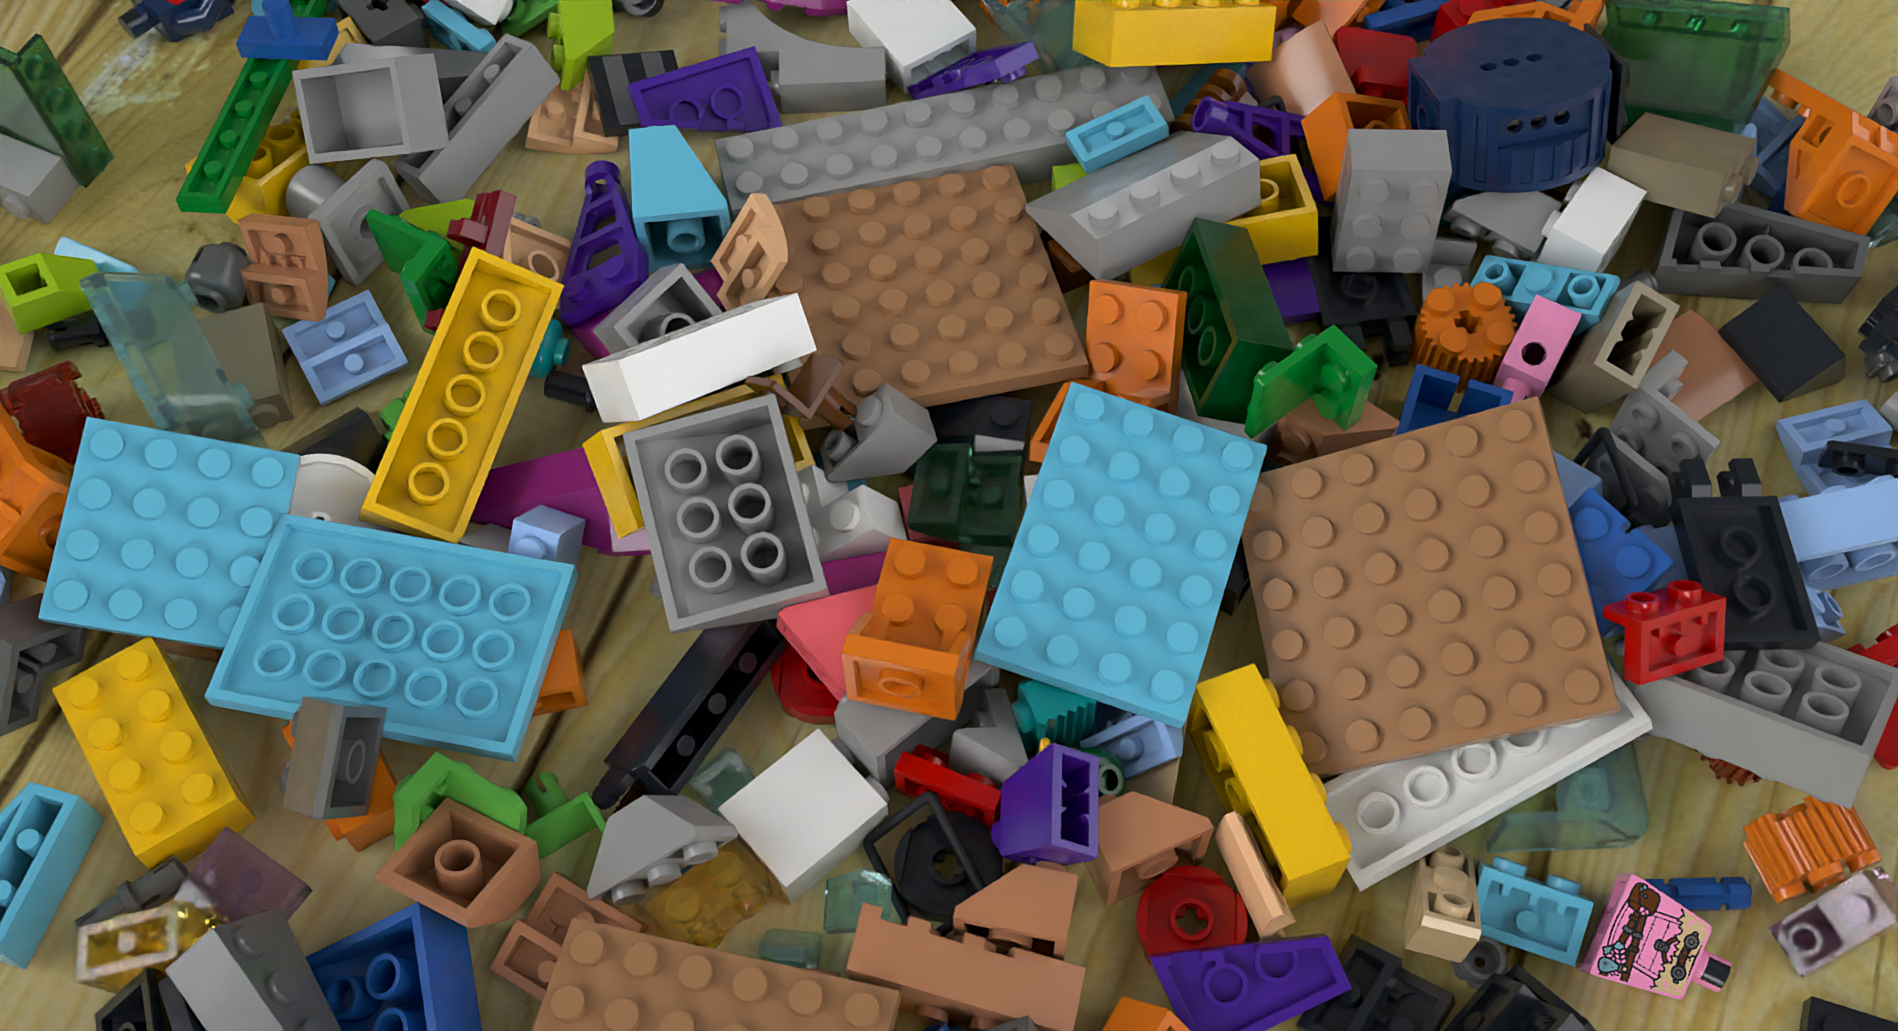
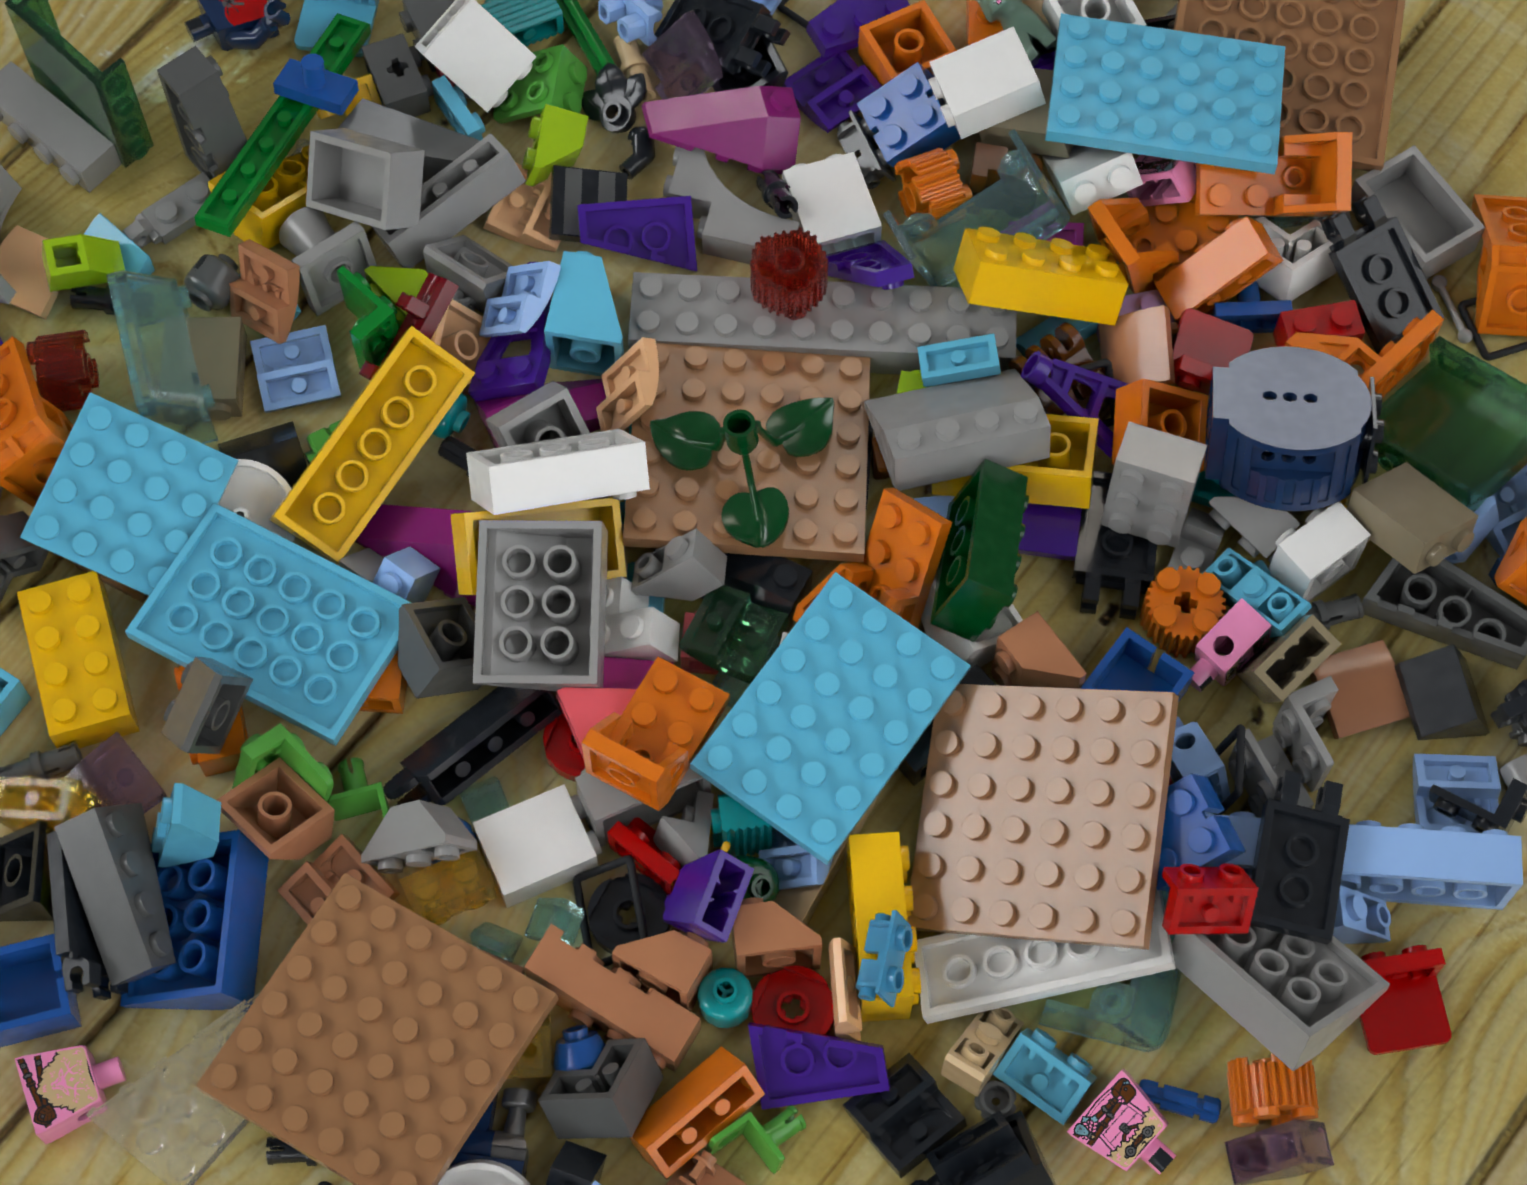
camera: 15 degrees right, 5 degrees up
(149, 223) = (170, 214): none -> light grey hinge
(154, 83) = (202, 111): none -> dark grey wedge
(346, 918) = (186, 827): none -> medium azure slope
(538, 191) = (468, 266): none -> light grey slope
(594, 196) = (522, 299): none -> light blue slope
(612, 608) = (437, 646): none -> dark grey slope
(682, 26) = (642, 154): none -> black arm
(811, 392) = (636, 523): reddish brown bracket -> none
(848, 27) = (776, 194): none -> black pin
(896, 88) = (789, 273): none -> clear red brick
(968, 247) = (691, 436): none -> dark green plant
(1101, 950) = (725, 1011): none -> teal head
(1306, 841) = (890, 939): none -> dark azure hinge
(1320, 368) = (1021, 614): green bracket -> none

